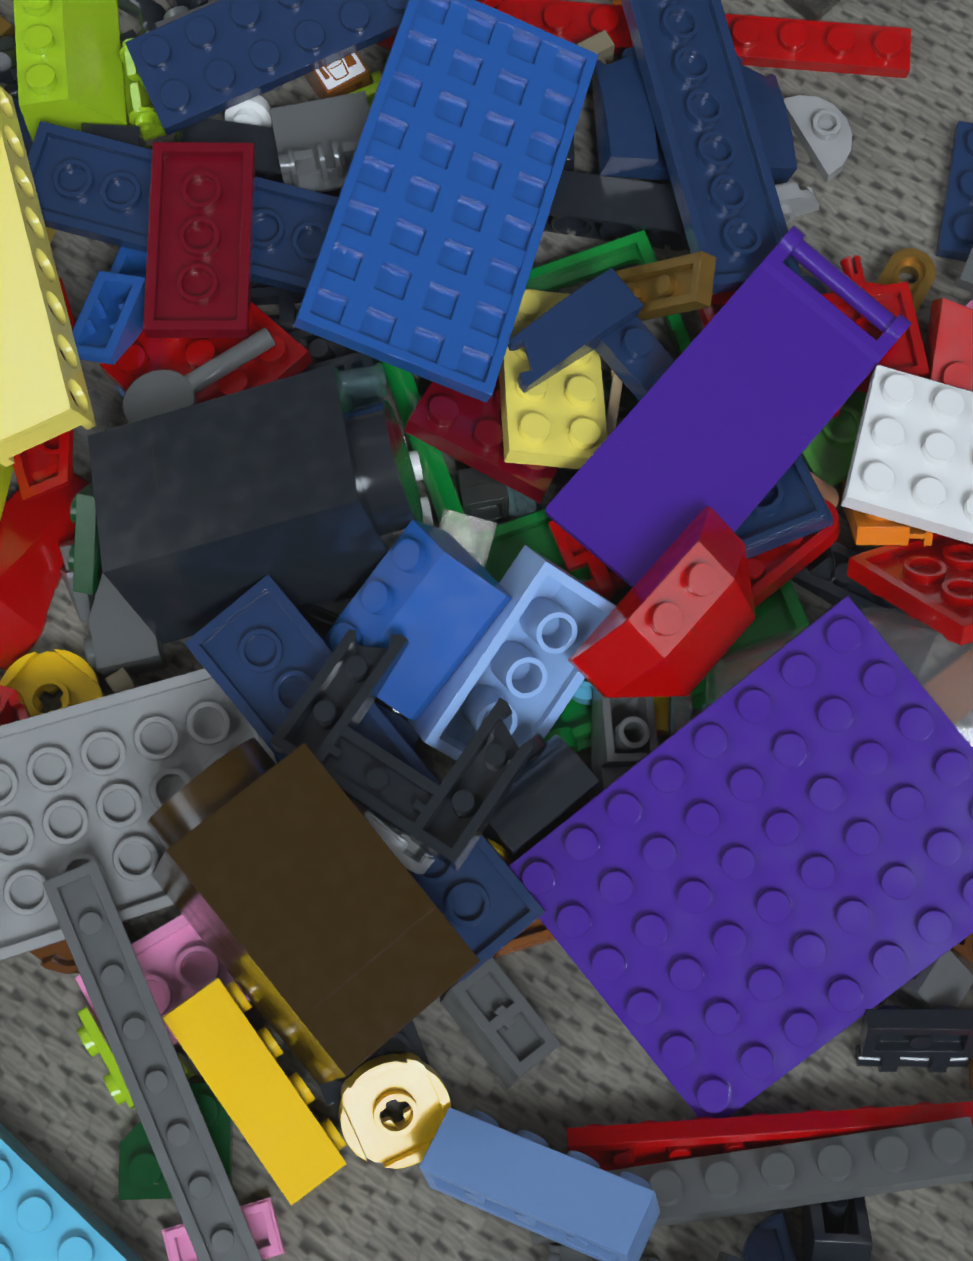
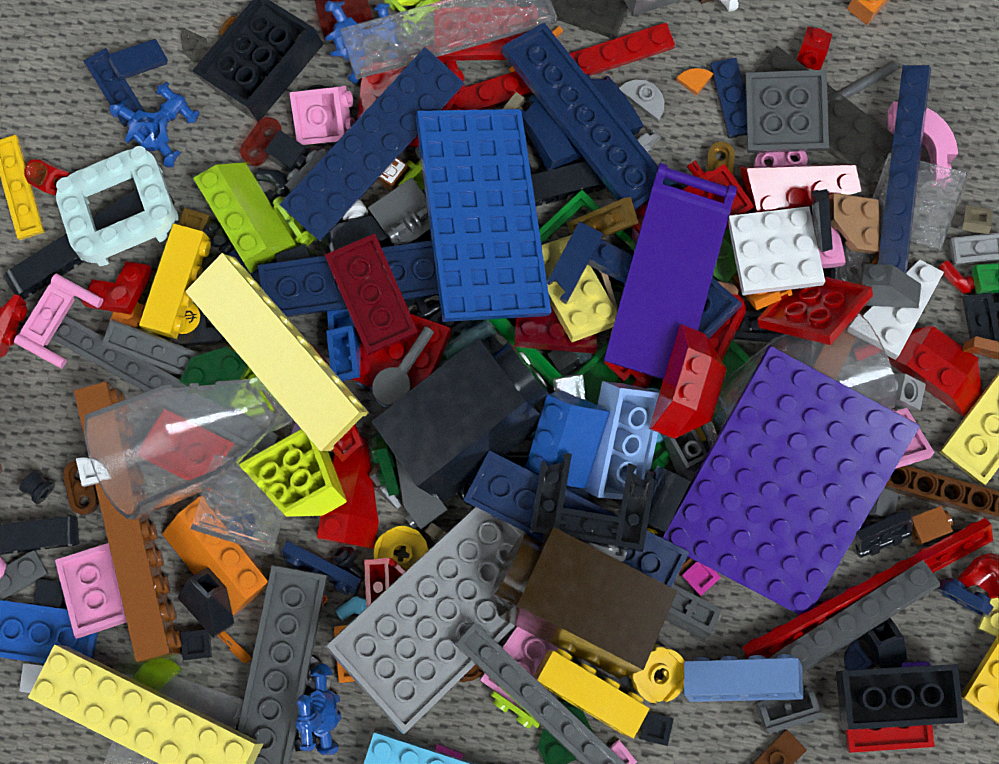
camera: 20 degrees left, 5 degrees up
(347, 1208) = (656, 728): none -> black tile
(550, 972) = (700, 577): none -> dark pink plate
(919, 138) = (694, 79): none -> orange tile

